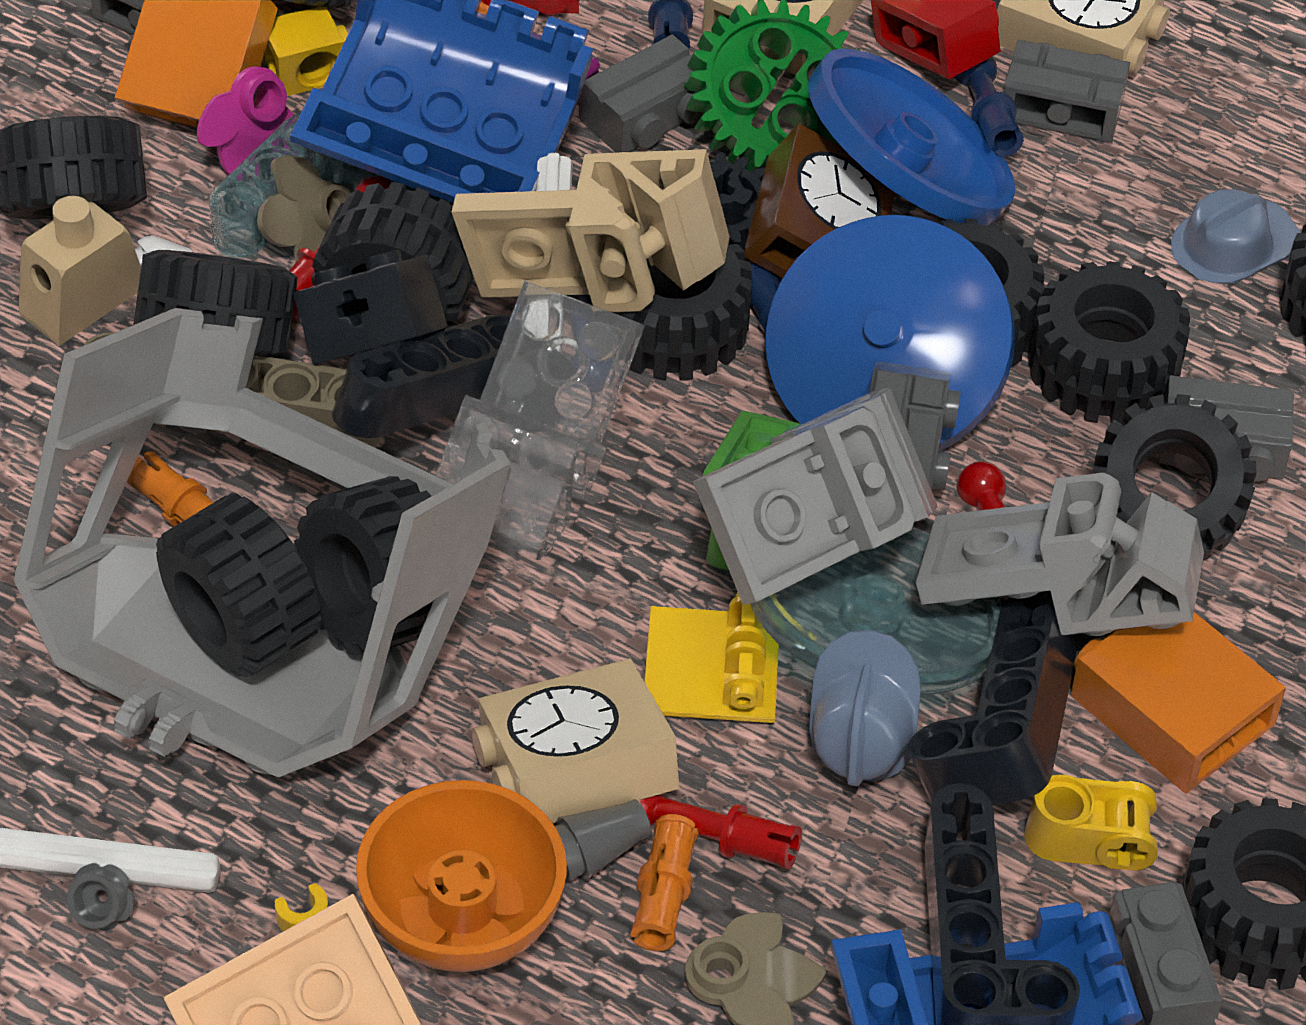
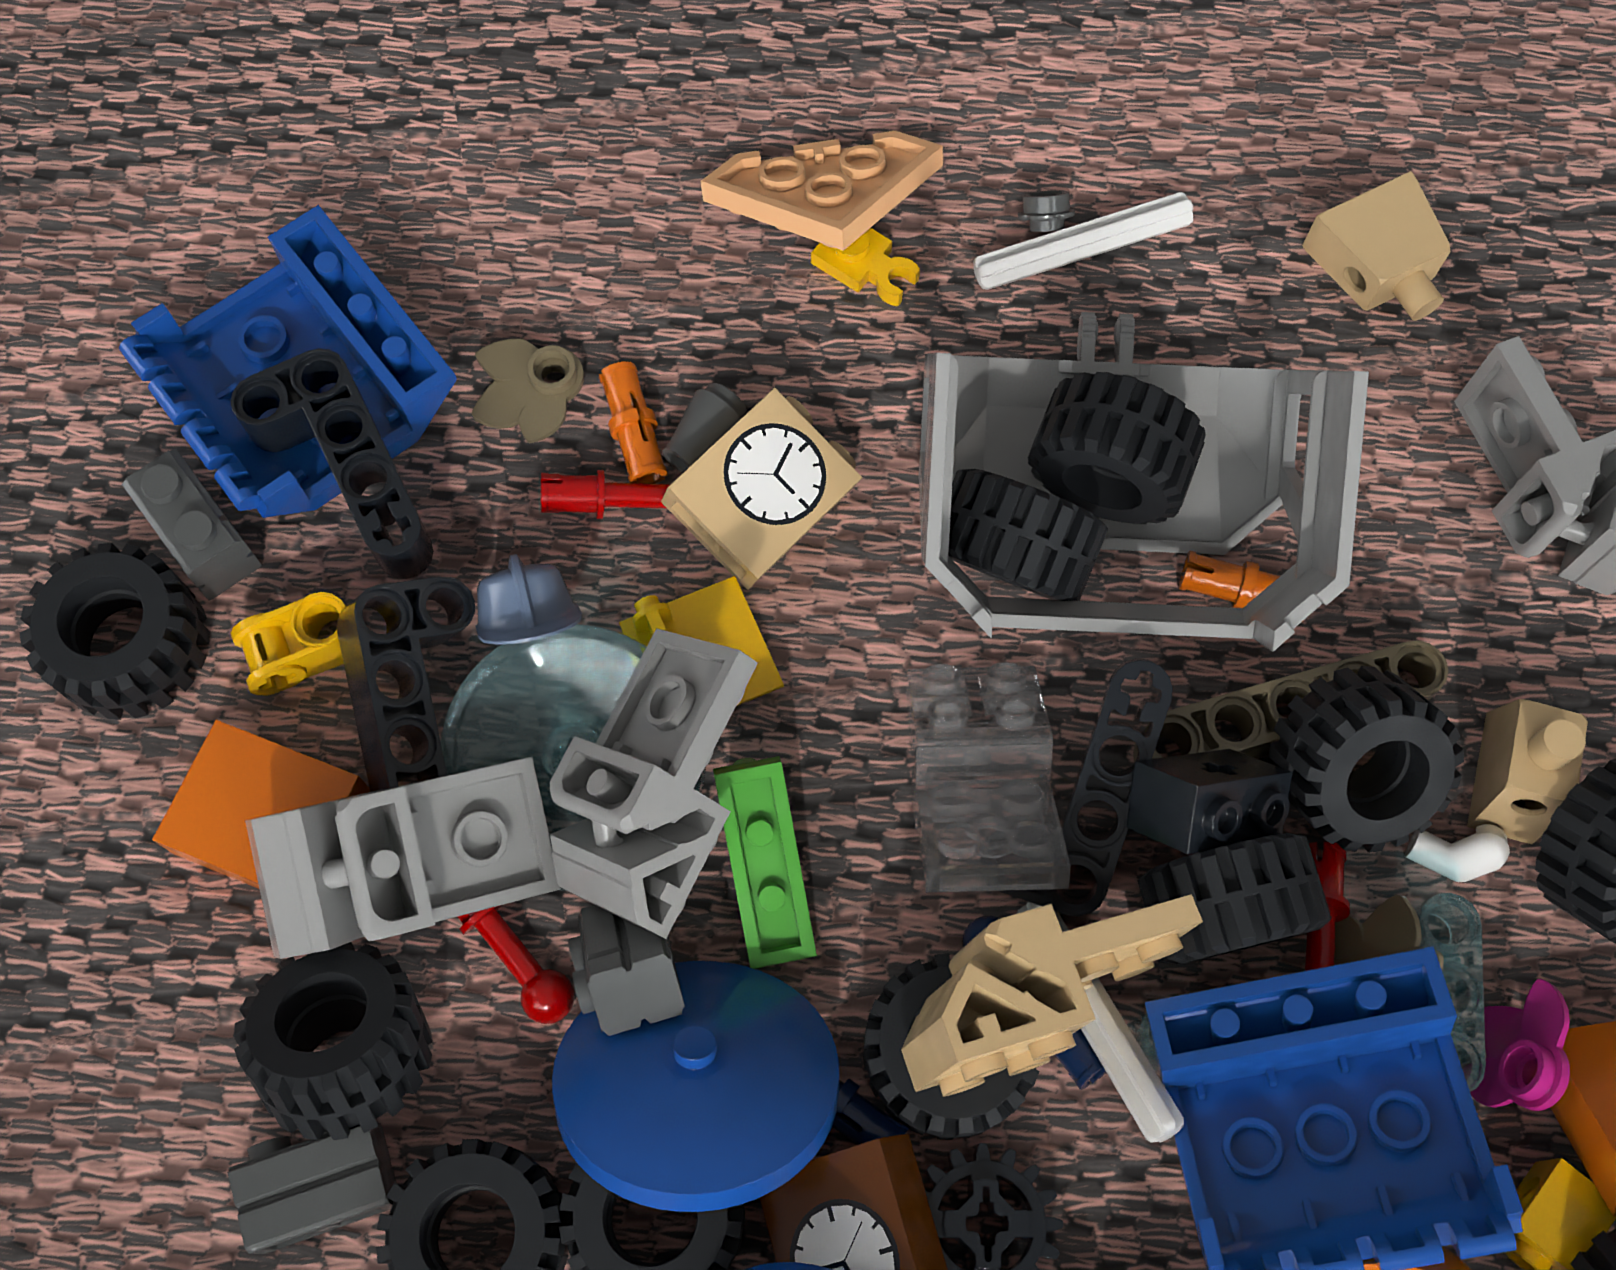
camera: 155 degrees right, 20 degrees up
(461, 874) = (782, 280): orange piece -> none

